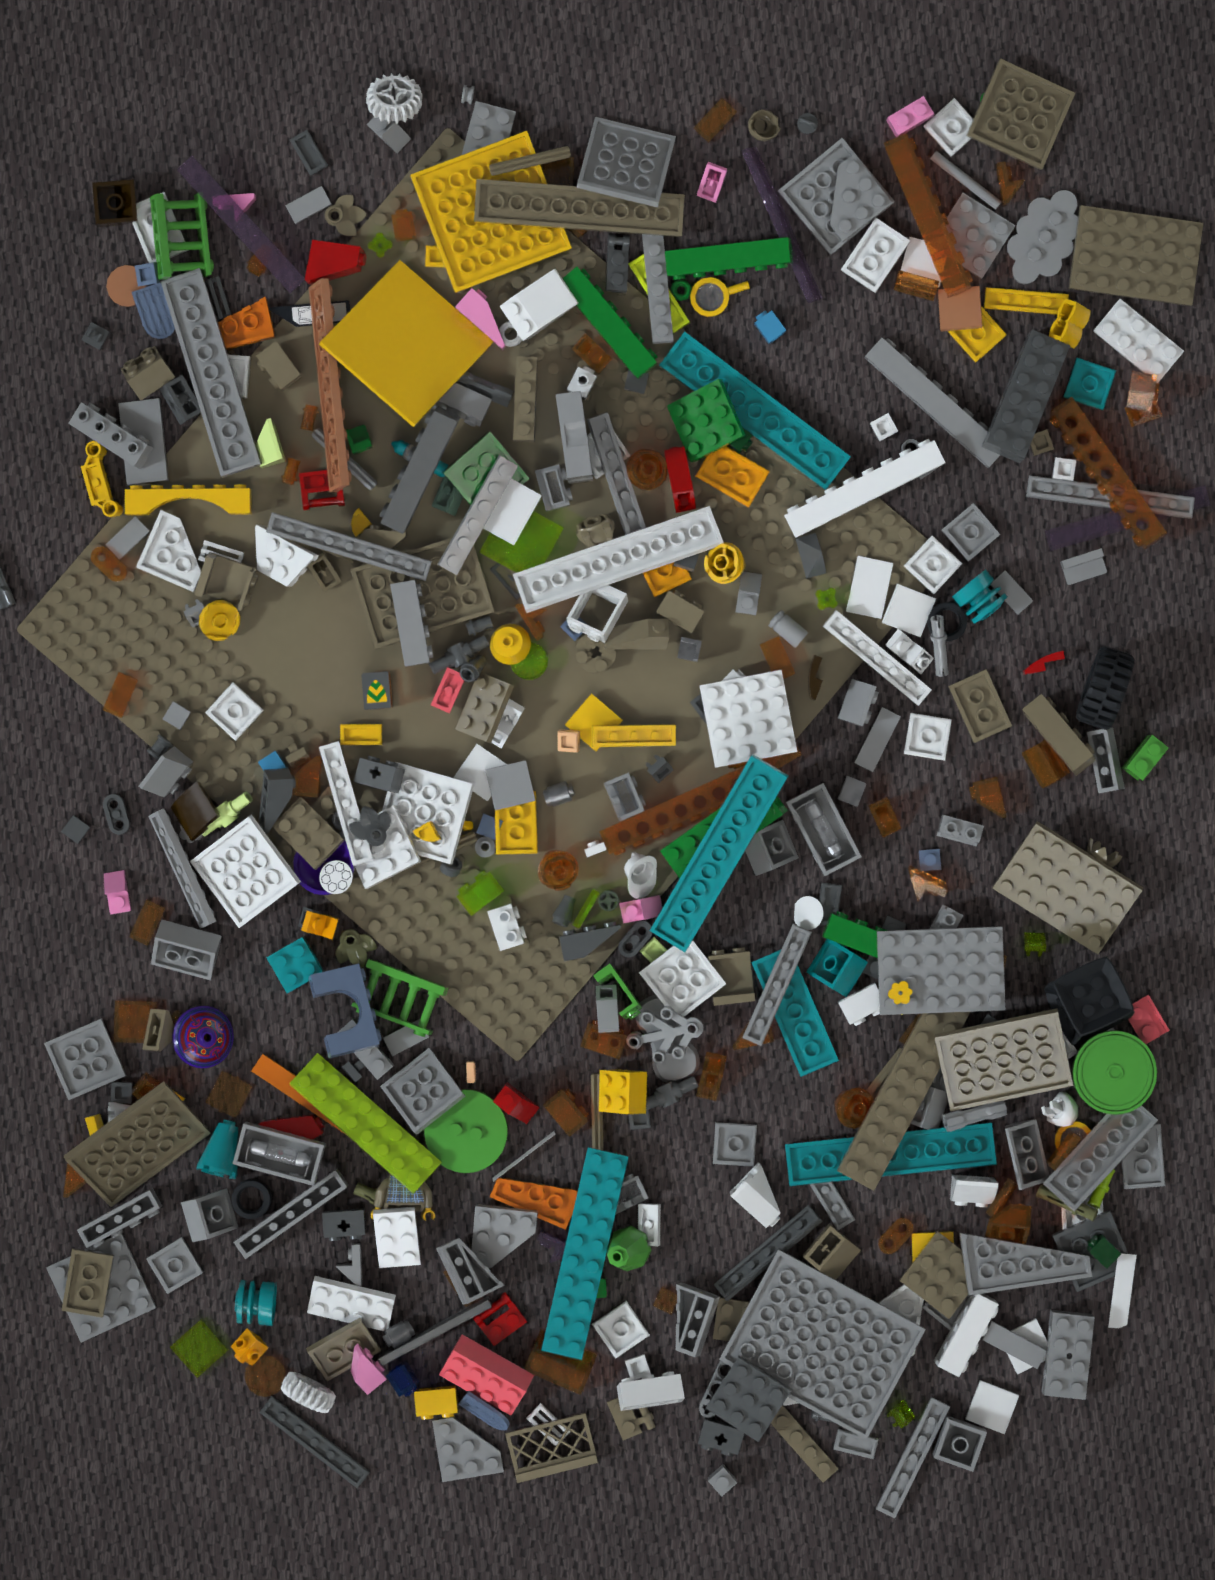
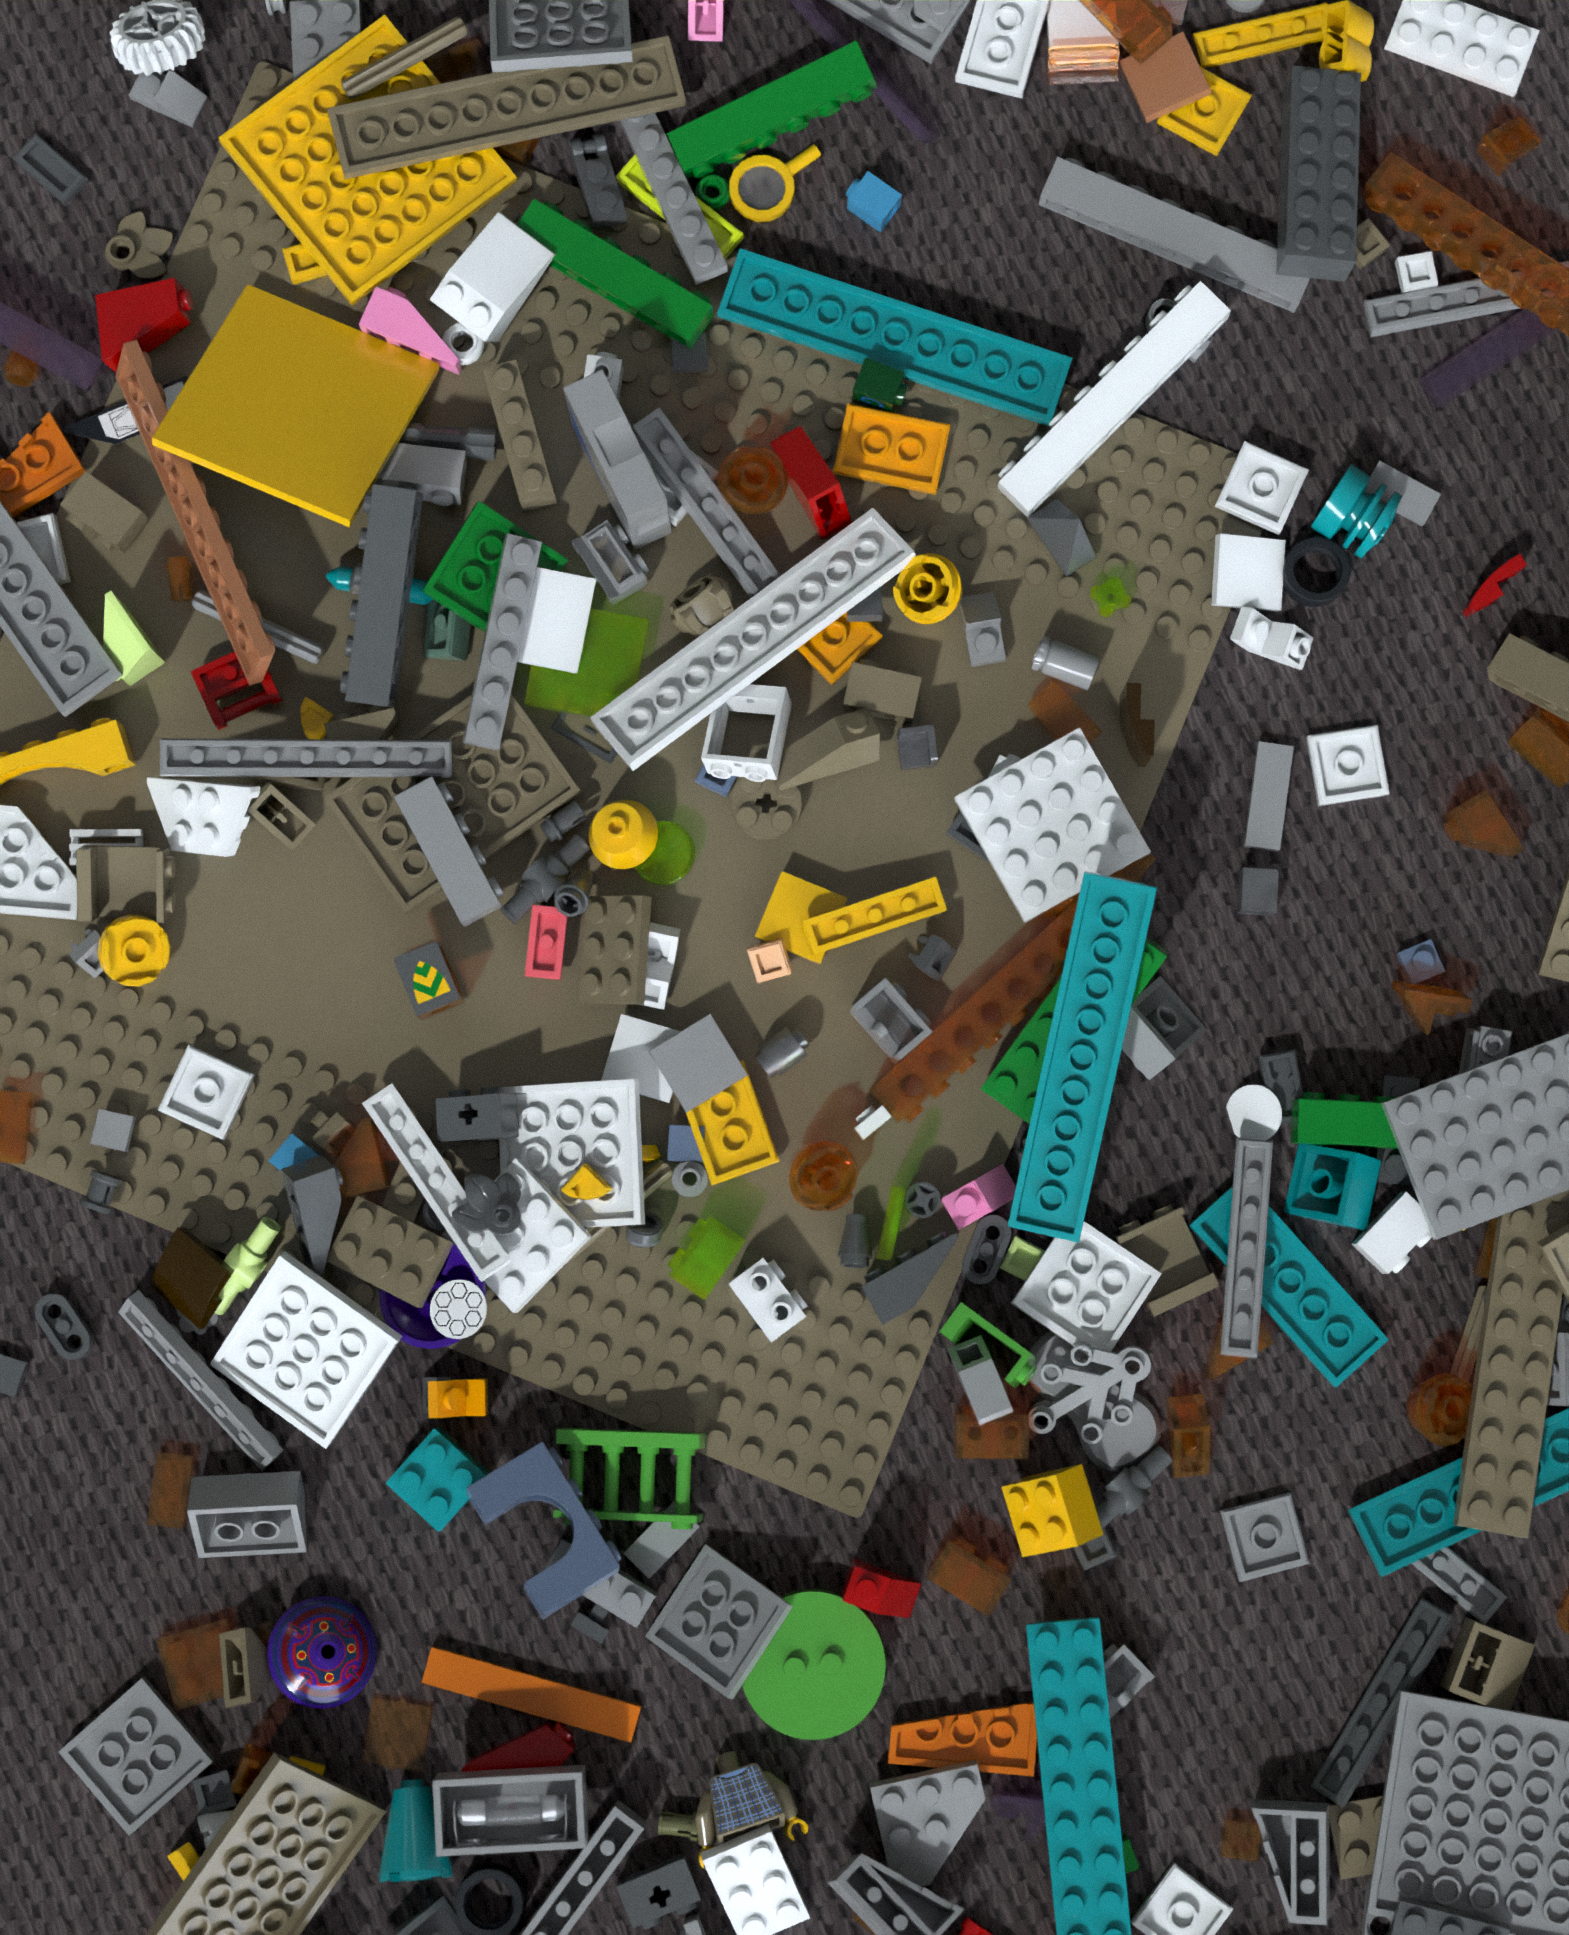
camera: 15 degrees left, 5 degrees down
(117, 892) = (105, 1455): bright pink slope -> none
(167, 772) = (123, 1229): light grey slope -> none
(290, 471) = (177, 674): clear orange pin -> none
(308, 205) = (75, 250): light grey tile -> none
(355, 950) = (530, 1423): olive plate -> none
(359, 439) = (272, 588): green panel -> none
(360, 734) = (426, 1062): yellow tile -> none
(365, 1123) = (641, 1708): lime plate -> none
(380, 251) = (201, 265): clear neon green plate -> none
(403, 225) = (236, 228): clear orange brick -> none
(471, 1071) = (788, 1561): light nougat tile -> none
(523, 1156) = (922, 1674): white sticker -> none
(535, 628) = (639, 781): clear orange slope -> none
(591, 353) = (601, 328): clear orange slope -> none
(597, 1117) = (1020, 1565): dark tan axle -> none
(628, 1248) = (1149, 1773): bright green cone -> none
(640, 874) = (961, 1138): white piece -> none
(649, 1222) = (1169, 1720): white plate -> none
(706, 420) = (822, 373): green plate -> none
(757, 1197) = (1332, 1612): white slope -> none
(823, 829) = (1234, 968): light grey piece -> none
(857, 703) = (1219, 744): light grey slope -> none
(869, 587) = (1172, 557): white sticker -> none
(877, 657) = (1224, 663): white plate -> none
(883, 427) = (1108, 299): white plate -> none
(884, 817) = (1325, 915): clear orange slope -> none
(906, 992) = (1467, 1198): yellow plant -> none
(938, 637) = (1314, 597): light grey pin -> none
(960, 830) = (1454, 897): light grey window -> none
(970, 532) = (1303, 418): light grey plate -> none
(980, 706) = (1415, 688): dark tan plate -> none
(1084, 566) = (1501, 414): light grey panel -> none
(1089, 383) = (1409, 128): teal tile -> none
(1142, 391) = (1500, 106): clear orange brick -> none

